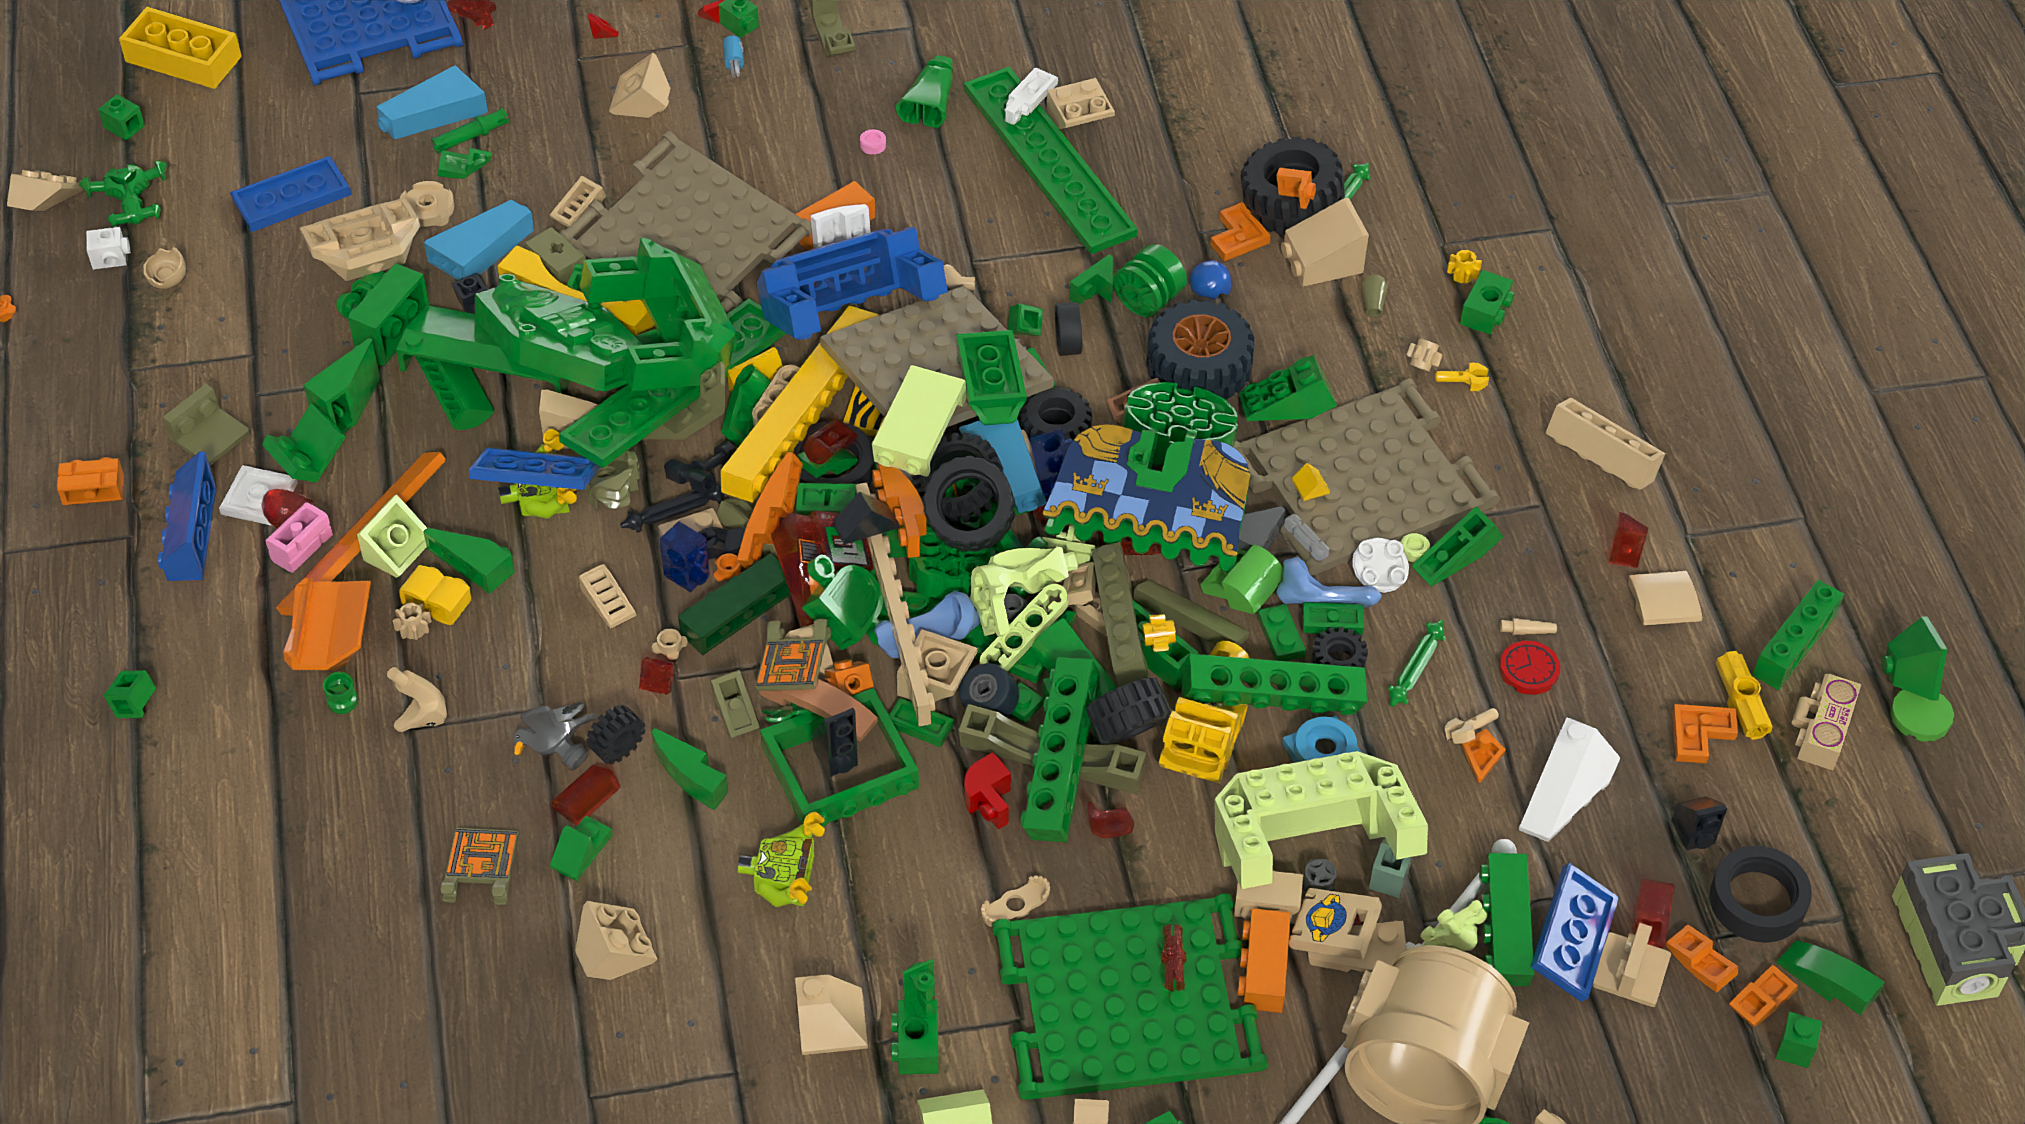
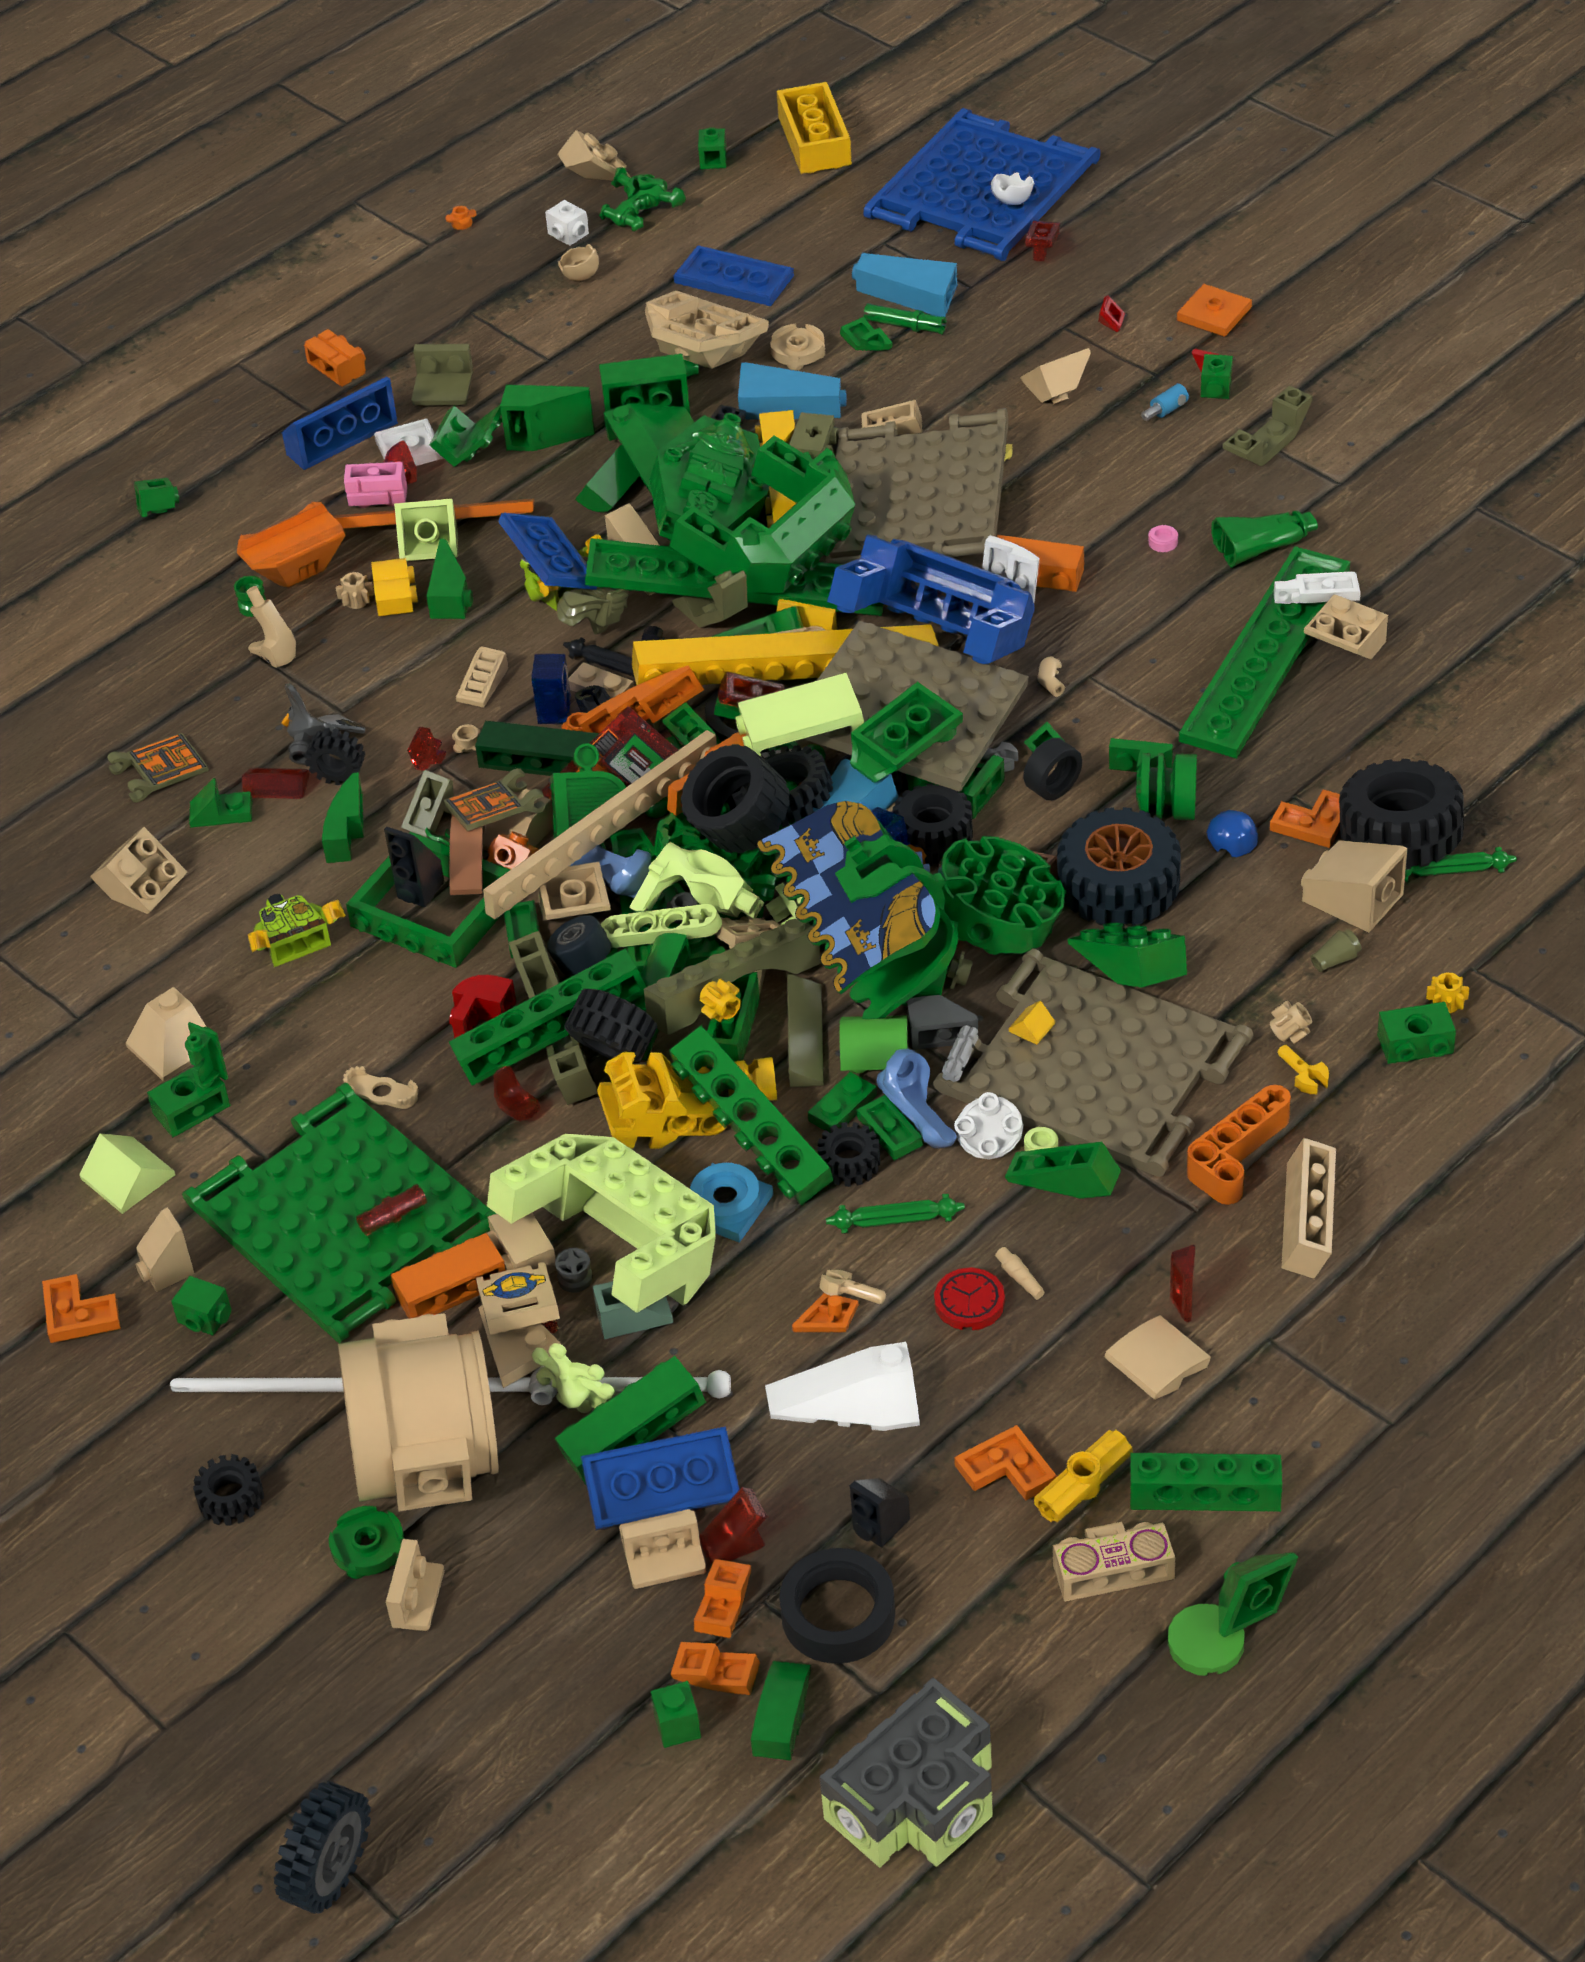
camera: 60 degrees right, 5 degrees down
(864, 519) = (664, 751): black slope -> none
(1296, 184) = (1367, 801): orange bracket -> none
(1512, 467) = (1217, 1154): none -> orange beam

